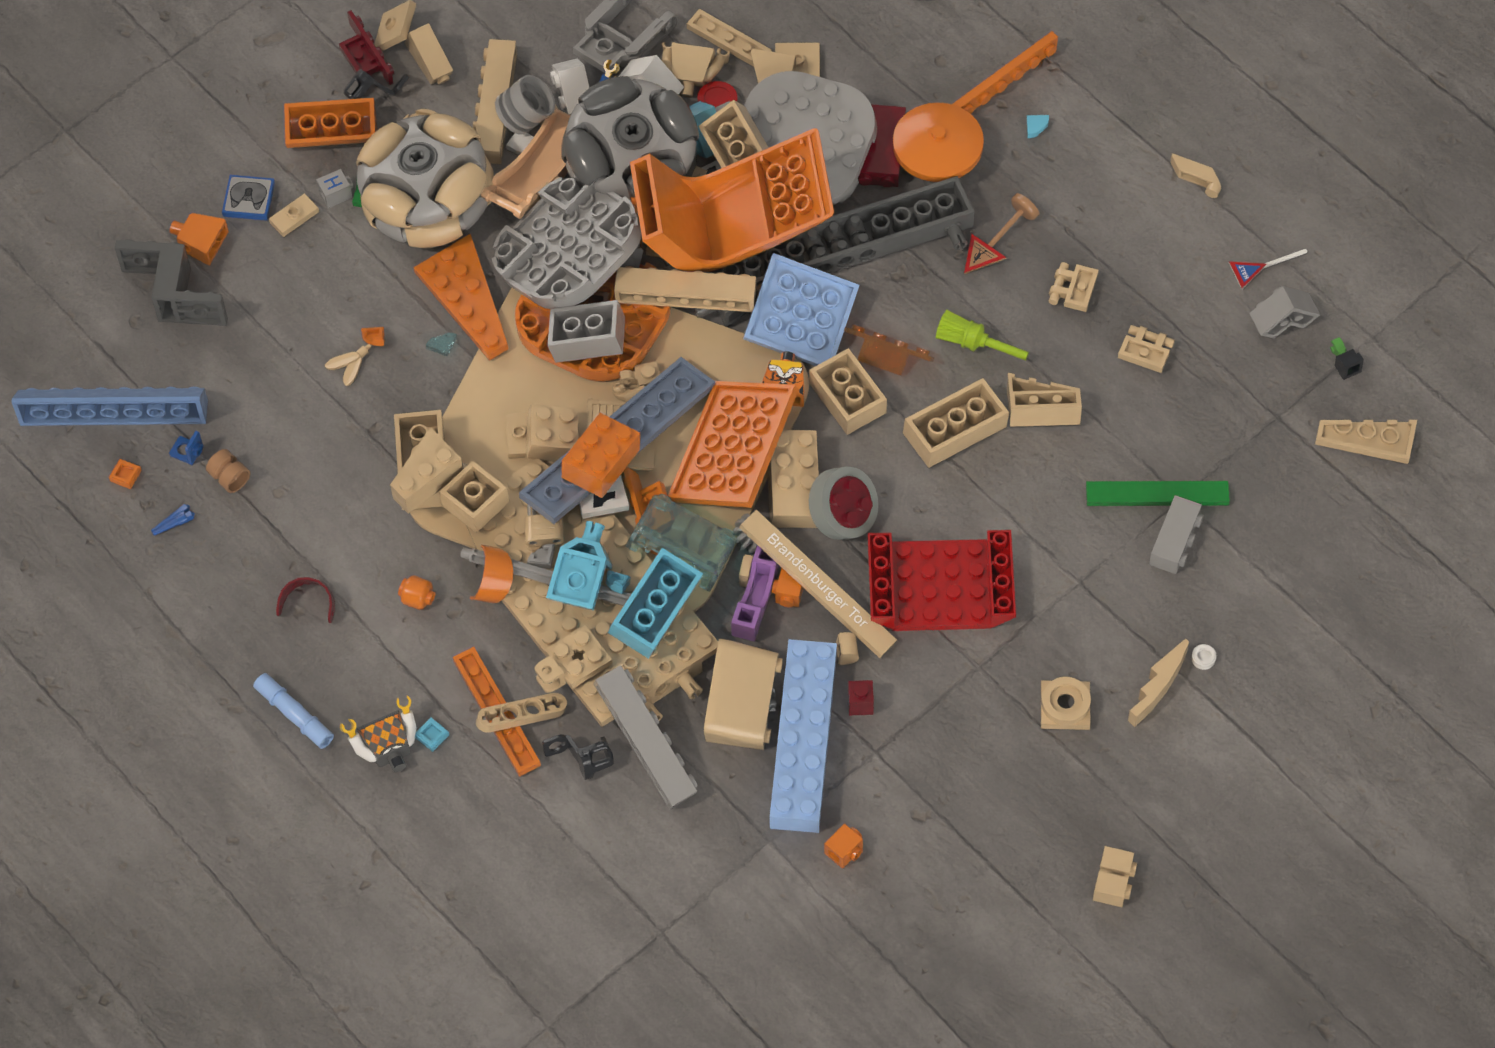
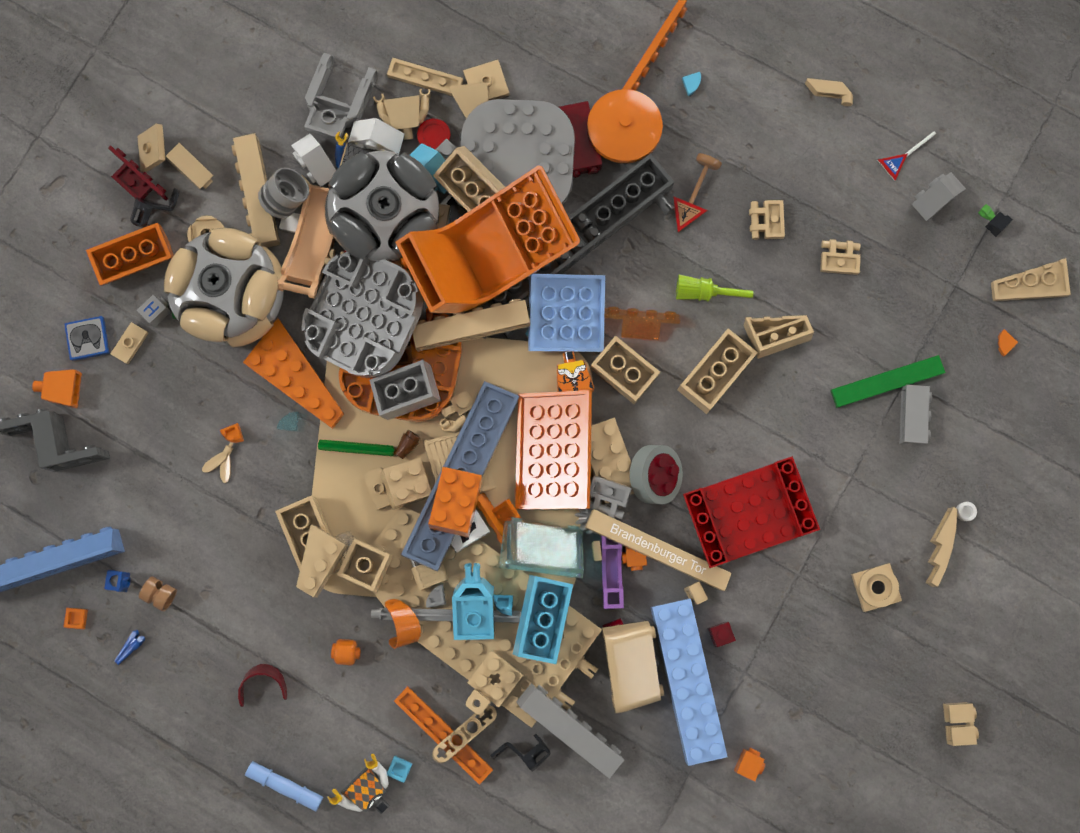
camera: 20 degrees left, 20 degrees up
(508, 386) = (354, 447): none -> green axle
(569, 396) = (407, 443): none -> reddish brown cone
(782, 499) = (609, 491): none -> light grey plate
(1315, 492) = (1005, 342): none -> orange tile

